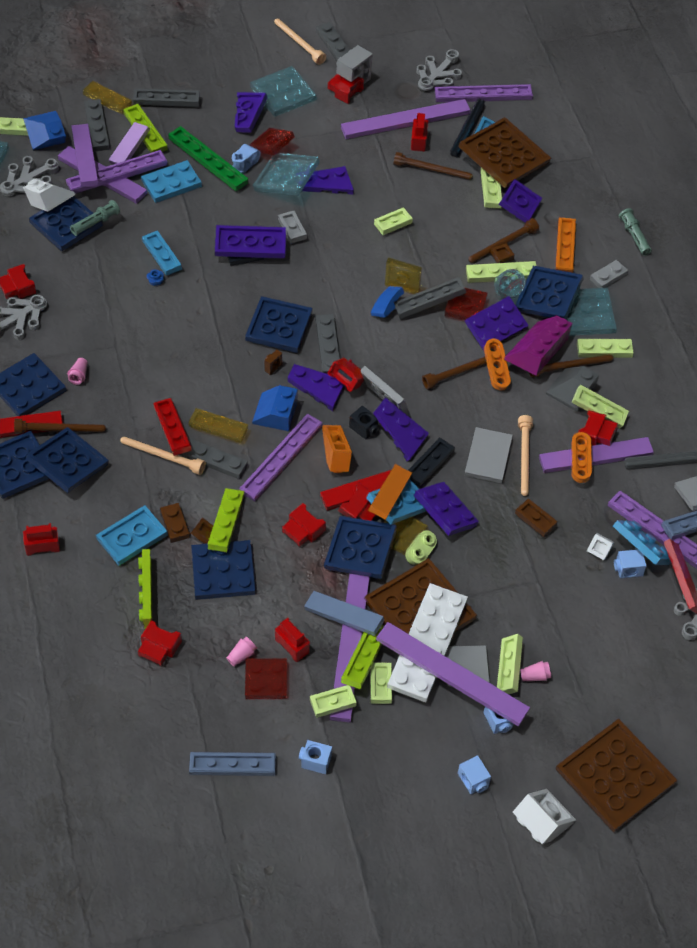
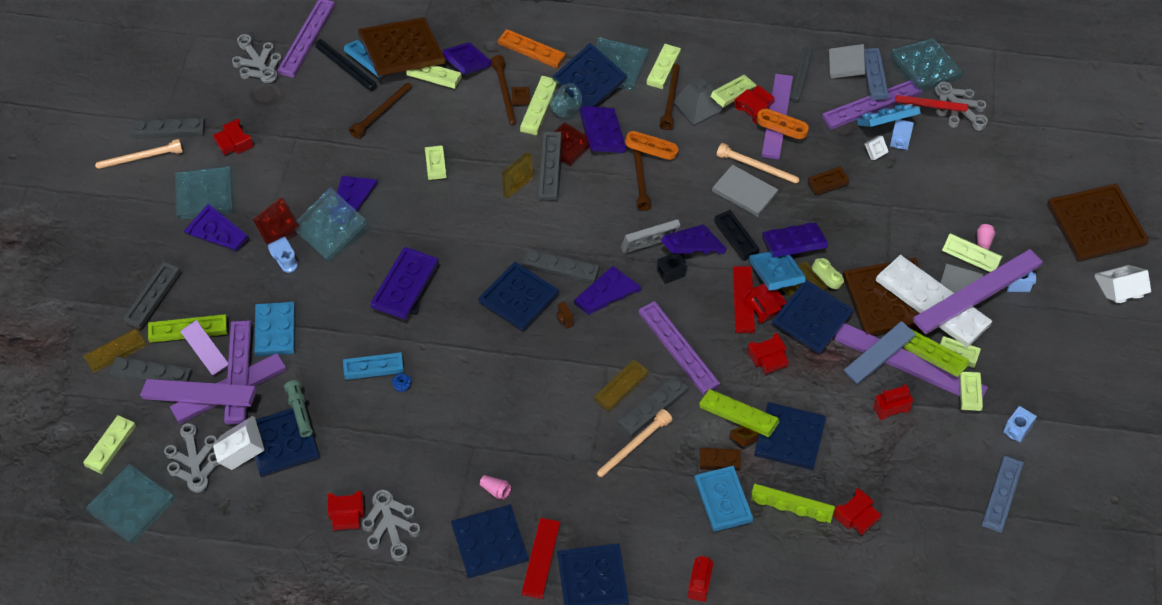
camera: 65 degrees left, 0 degrees up
(21, 426) = (550, 556): reddish brown piece -> none
(45, 130) = (136, 419): blue slope -> none
(67, 459) = (612, 526): dark blue plate -> none
(172, 426) = (607, 423): red tile -> none
(208, 158) = (263, 285): green plate -> none
(242, 651) = (889, 446): bright pink cone -> none
(266, 678) = (922, 439): clear red plate -> none
(276, 408) = (622, 330): blue slope -> none
(294, 228) = (395, 243): light grey plate -> none
(336, 448) = (692, 298): orange slope -> none
(346, 373) = (613, 258): red piece -> none
(355, 64) = (220, 115): light grey brick -> none
(386, 300) = (536, 200): blue slope -> none
(390, 491) = (771, 268): orange tile -> none
(404, 119) = (304, 109): medium lavender tile -> none
(419, 133) = (336, 100): red piece -> none
(474, 775) = (1071, 316): light blue brick -> none
(540, 344) = (646, 105): magenta slope -> none
(608, 274) = (582, 31): light grey plate -> none

